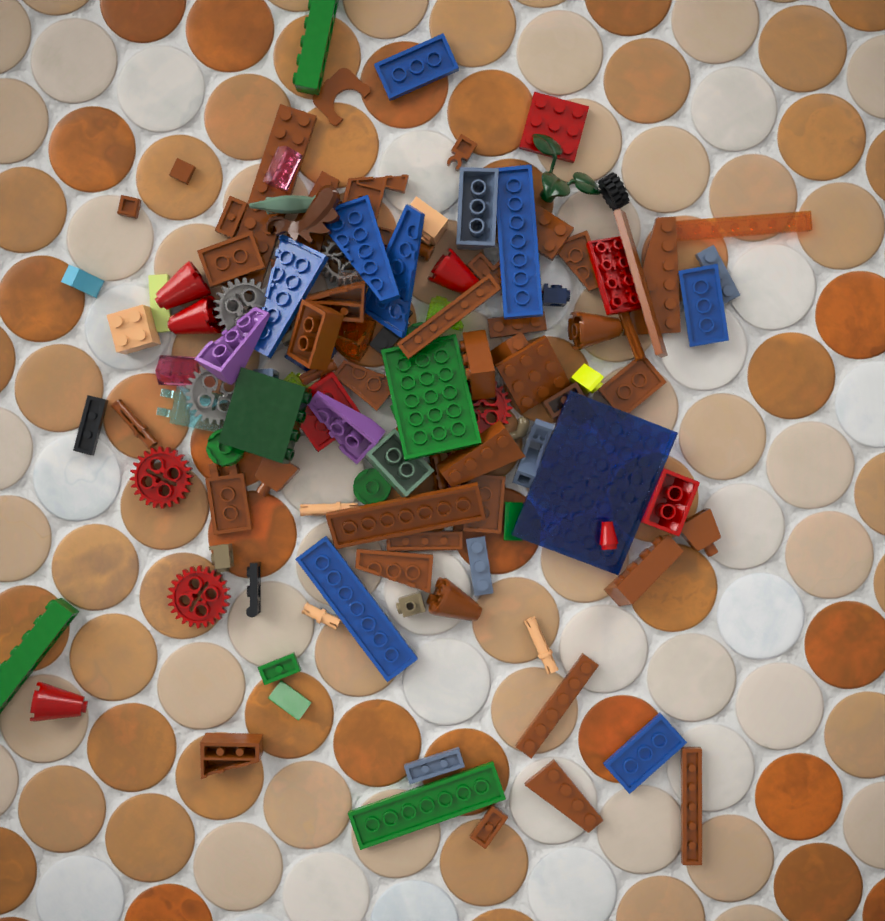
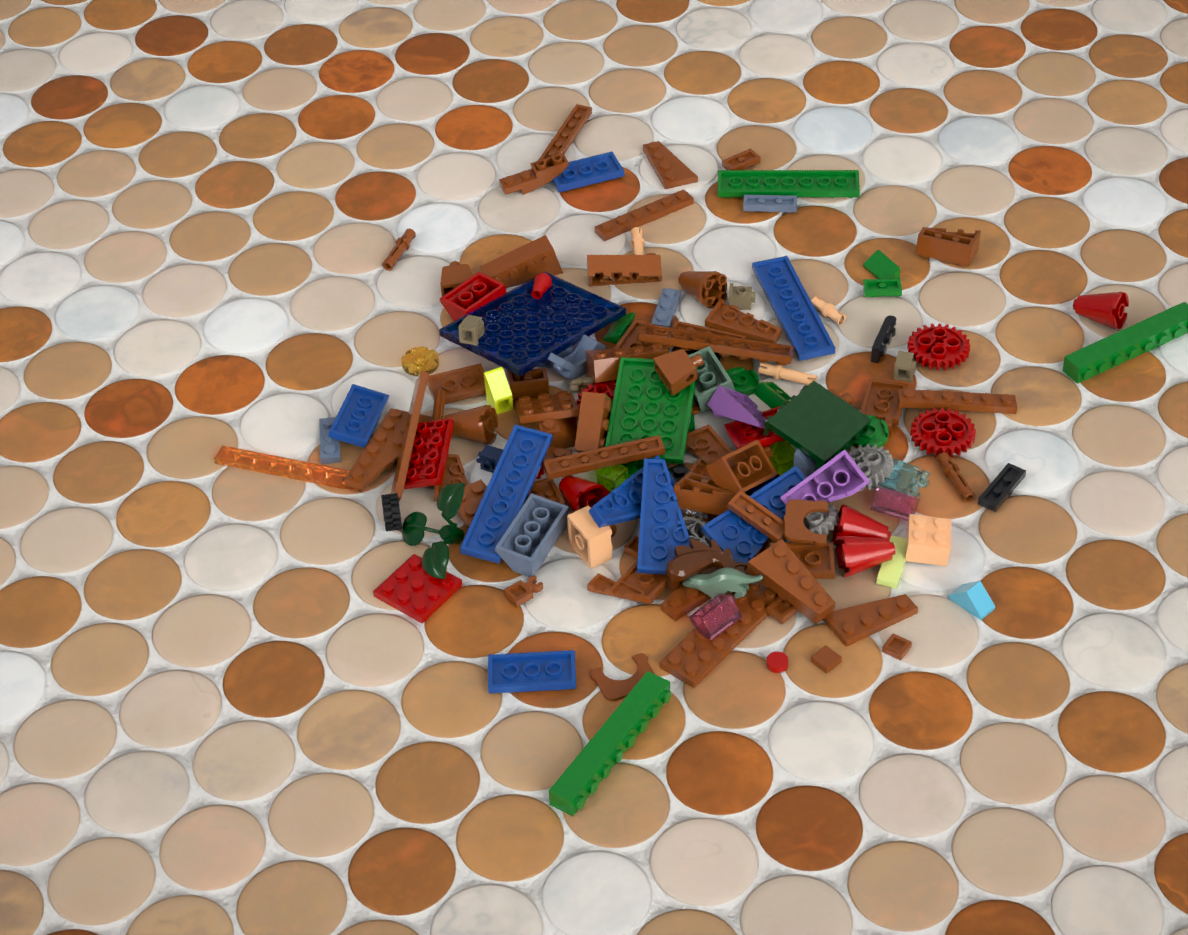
camera: 155 degrees left, 45 degrees down
(160, 524) = (957, 401): none -> dark orange plate
(163, 227) = (869, 618): none -> dark orange wing
(221, 153) = (777, 662): none -> red tile
(229, 219) = (792, 581): none -> dark orange wedge
(248, 297) = (794, 521): none -> dark orange piece
(280, 283) = (757, 516): none -> dark orange plate
(331, 477) = (772, 394): none -> green slope
(417, 435) = (677, 369): none -> dark orange torso
(540, 597) = (623, 269): none -> dark orange wedge
(641, 430) = (471, 330): none -> dark tan brick
(684, 409) = (419, 360): none -> clear yellow tile
(692, 720) = (540, 174): none -> dark orange slope
(781, 561) = (402, 245): none -> dark orange pin

